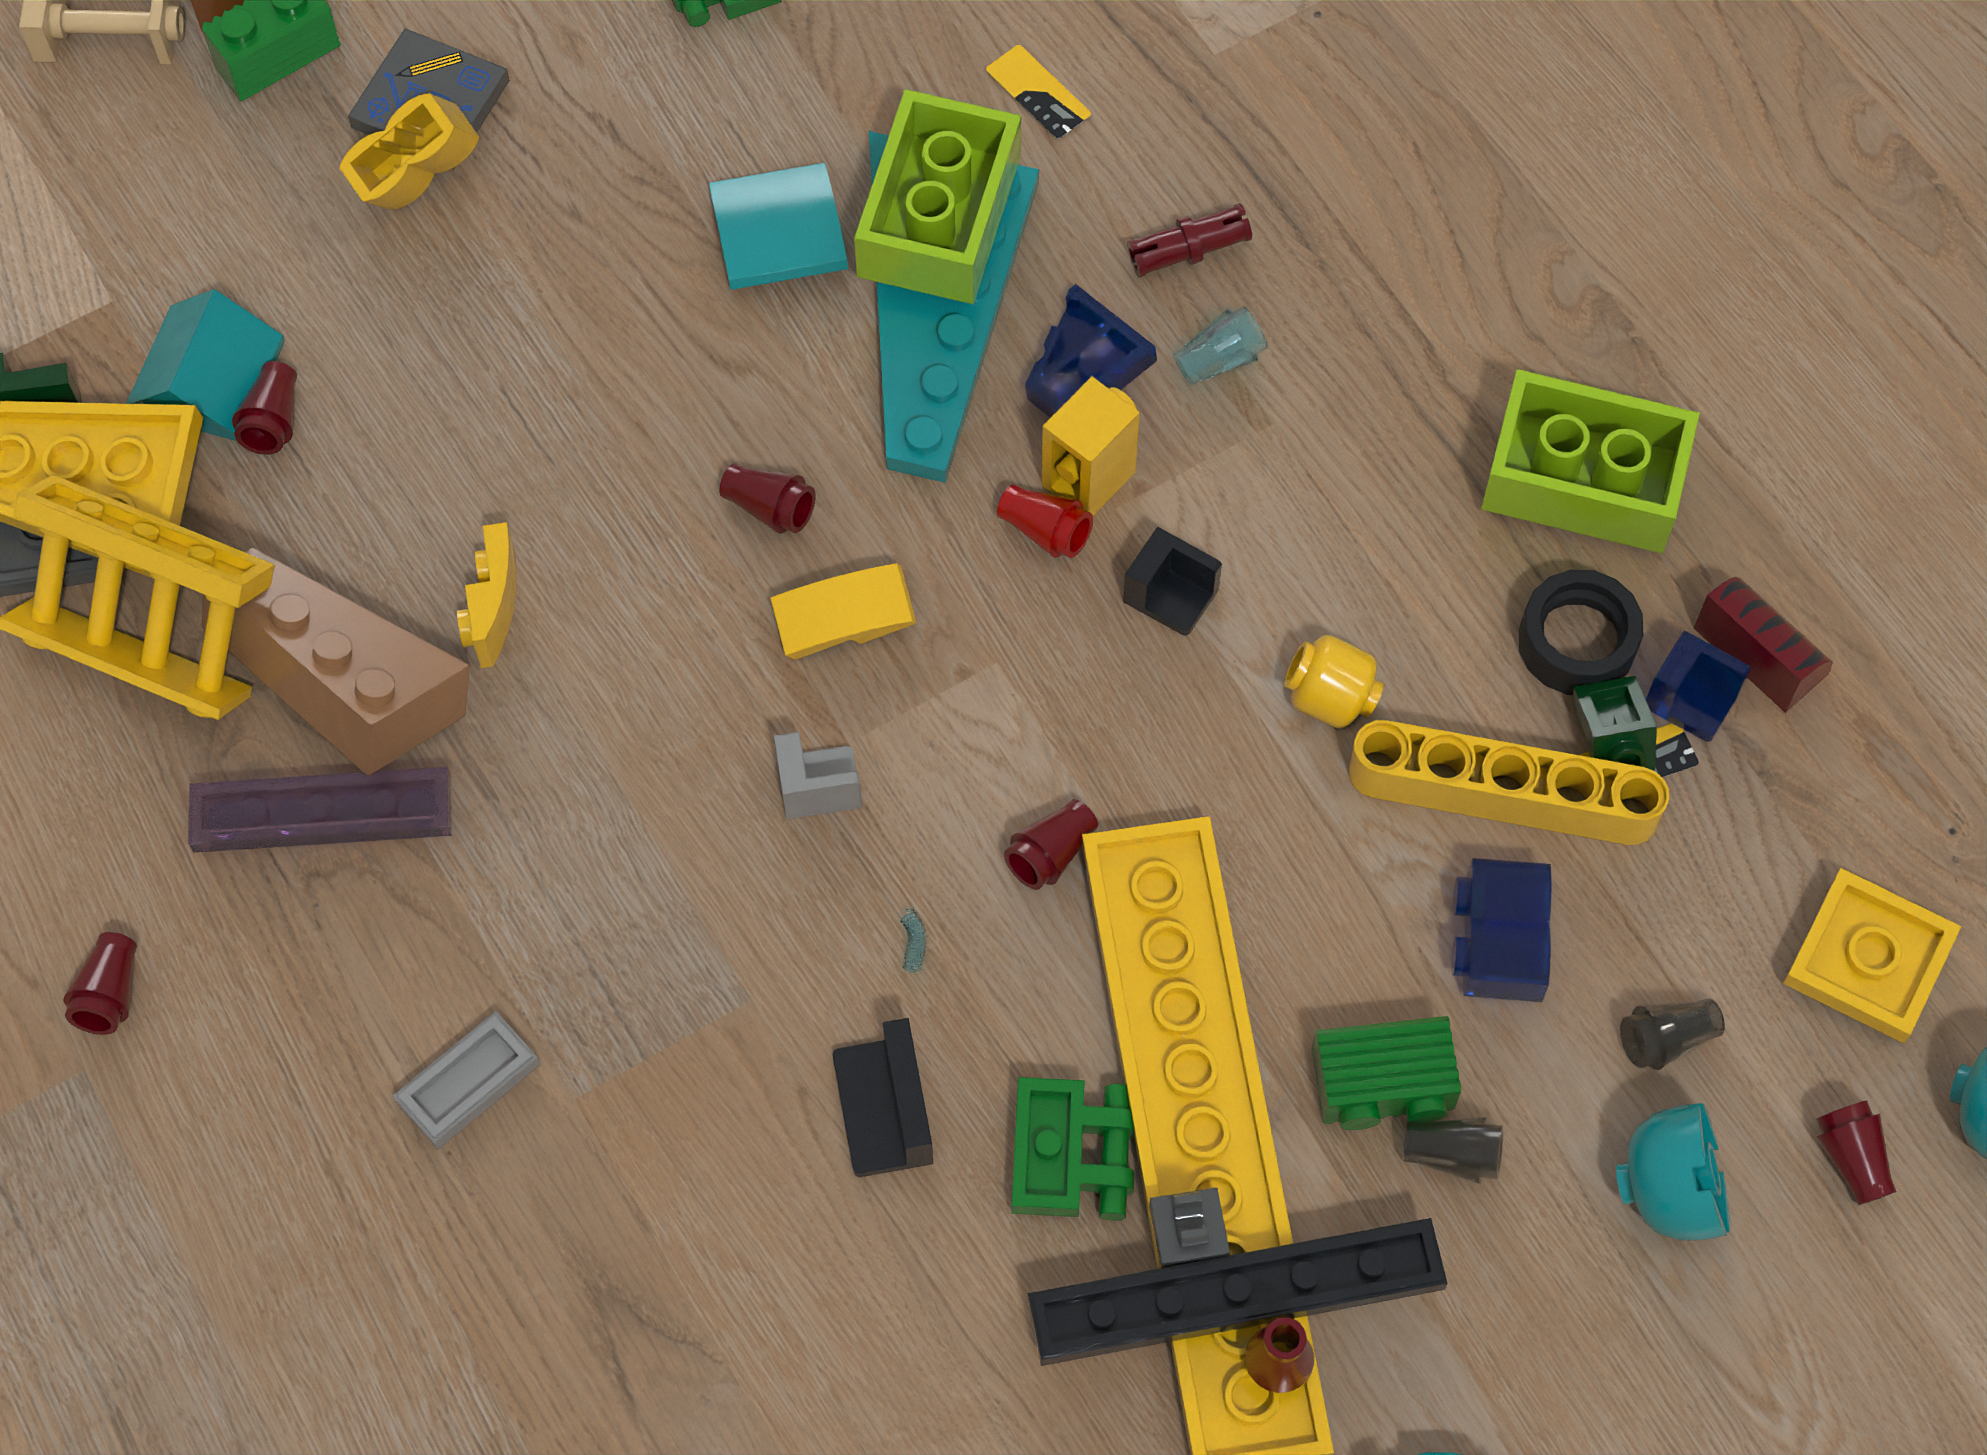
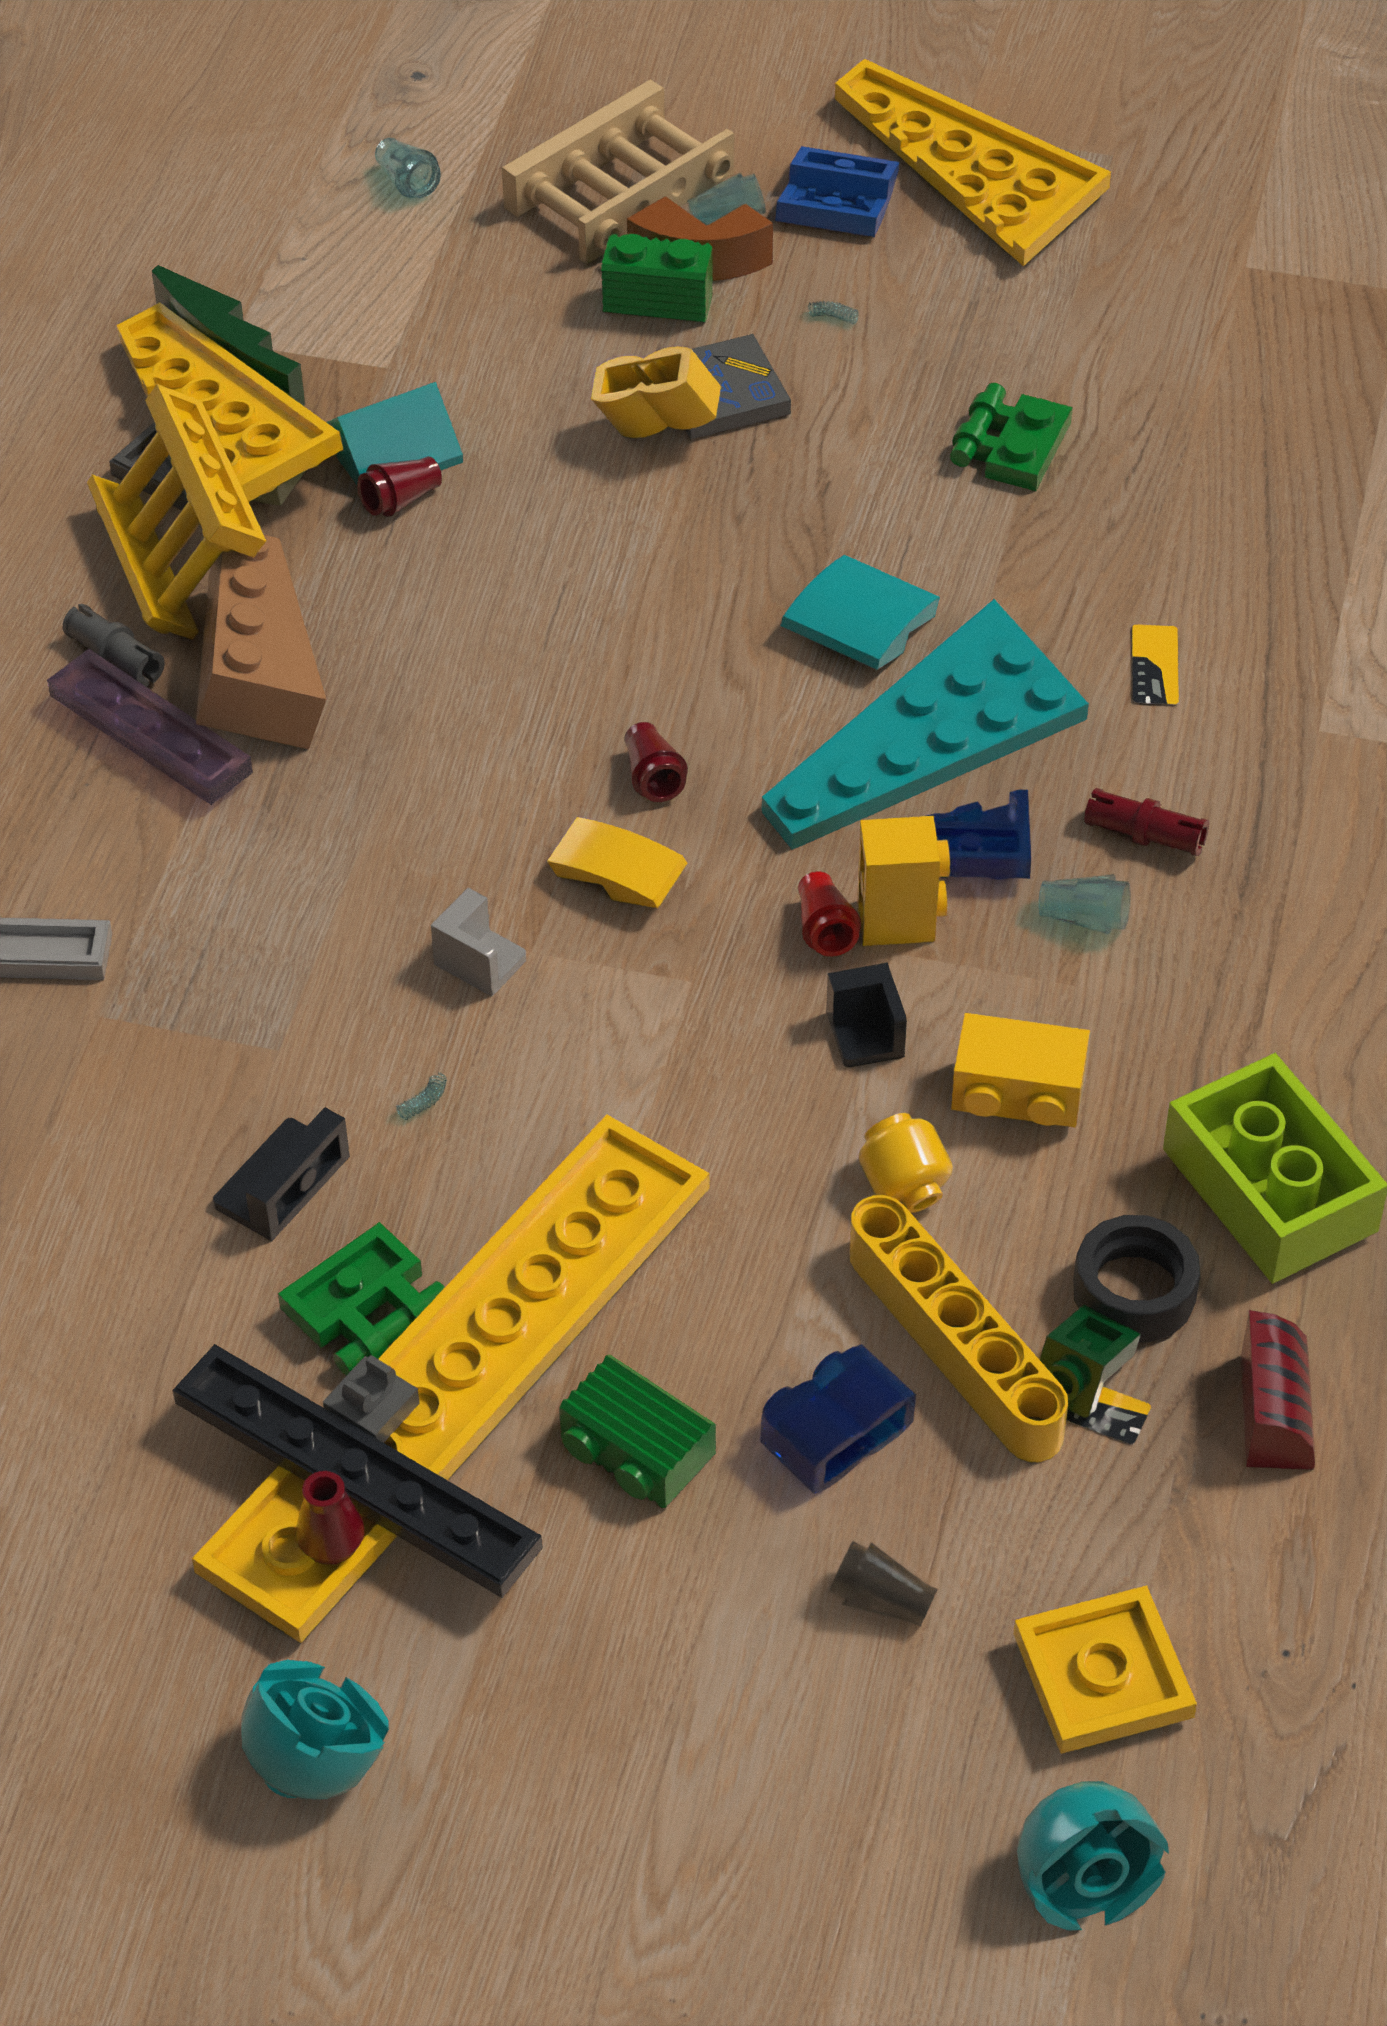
camera: 45 degrees right, 15 degrees down
(198, 760) = (113, 643): none -> dark grey pin
(493, 598) = (397, 691): yellow slope -> none
(938, 196) = (974, 649): lime brick -> none
(1047, 847) = (578, 1106): dark red cone -> none
(1336, 534) = (1020, 1070): none -> yellow brick
(1456, 1147) = (633, 1529): clear smoke cone -> none
(1676, 1175) = (765, 1674): teal cylinder -> none
(1697, 686) = (1182, 1380): clear blue panel -> none
(1858, 1150) = (929, 1782): dark red cone -> none

